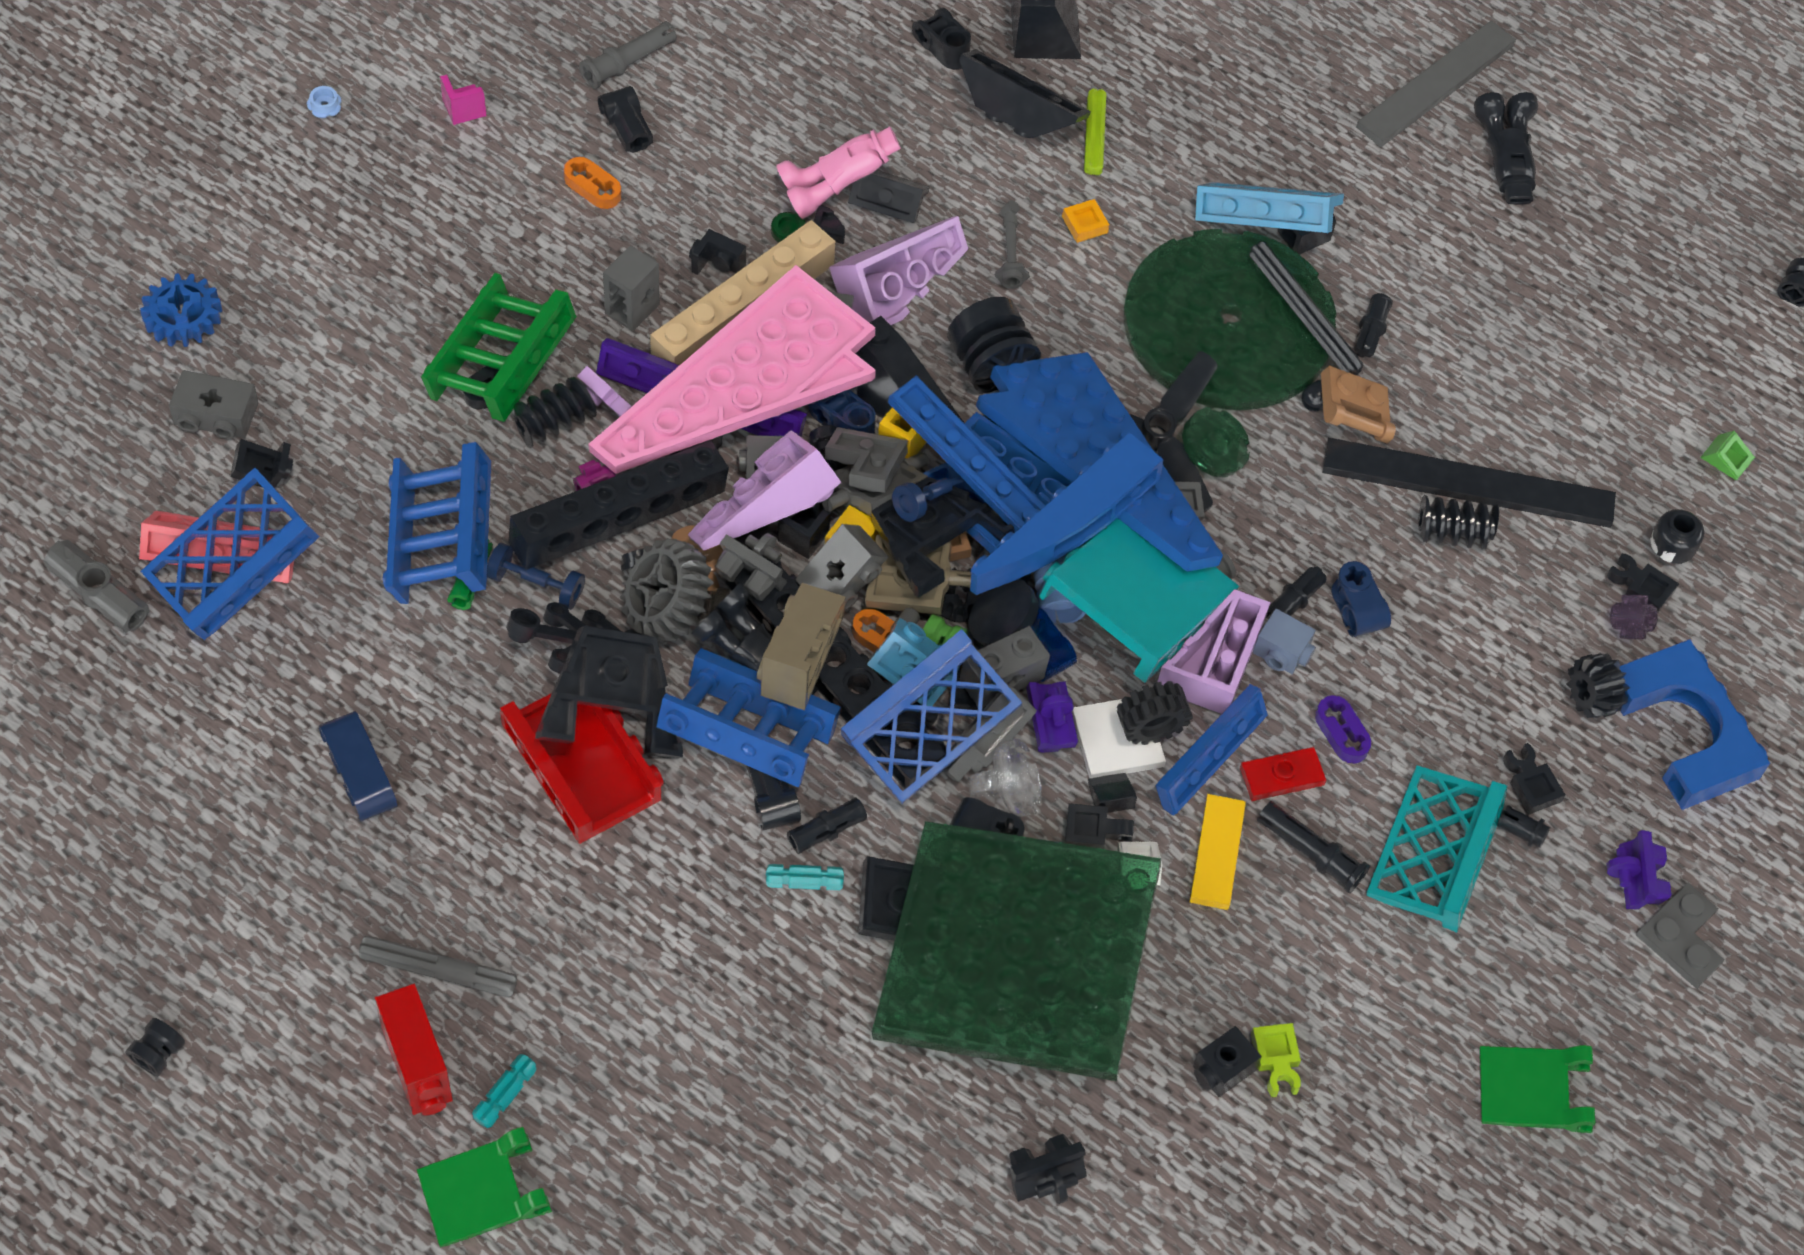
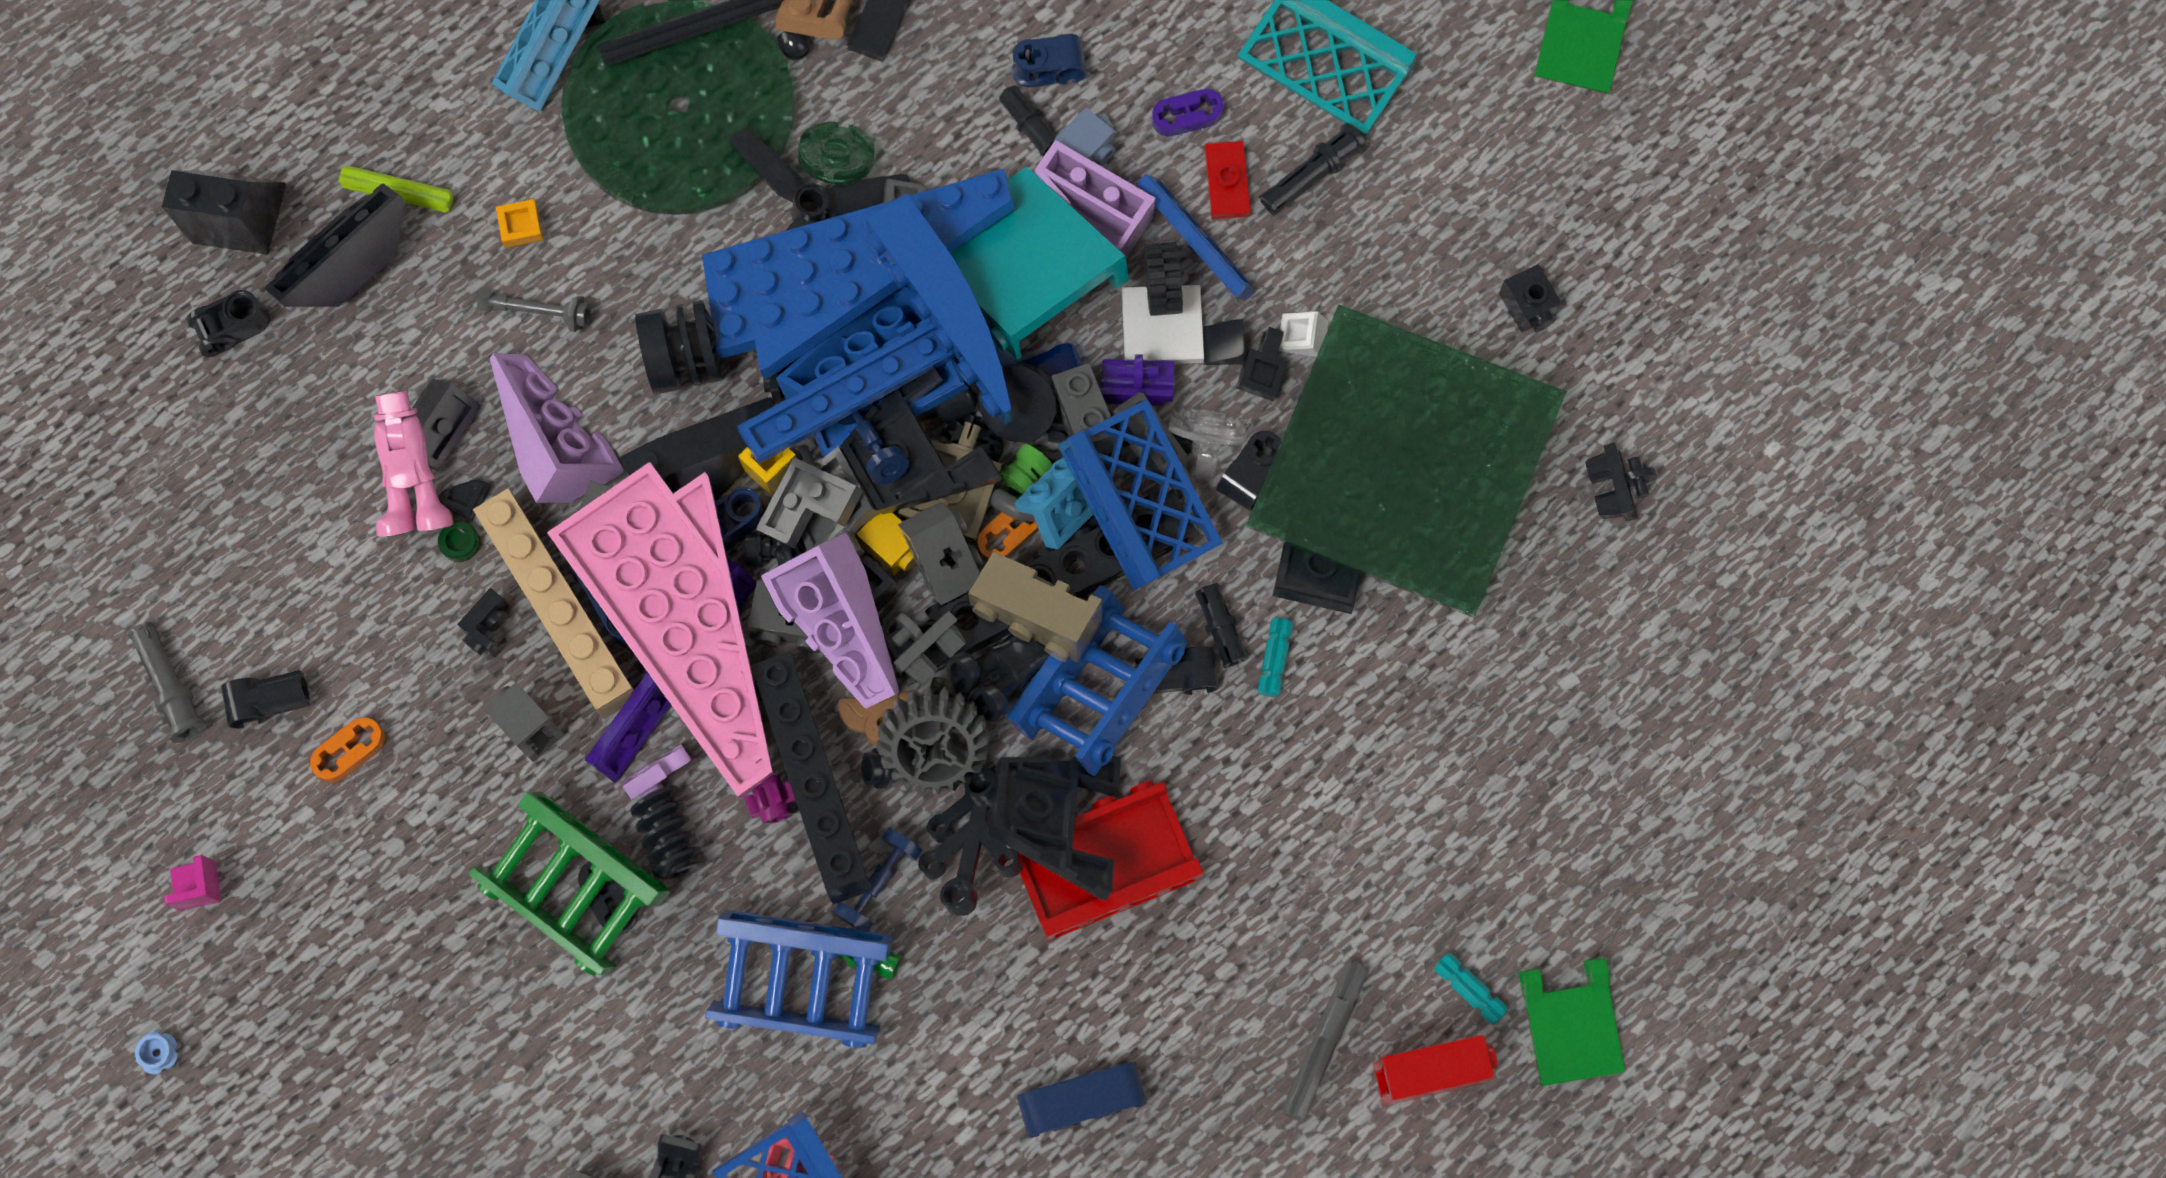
camera: 75 degrees left, 15 degrees up
(1217, 852) = (1302, 259): yellow tile -> none
(1279, 1054) = (1522, 251): lime plate -> none

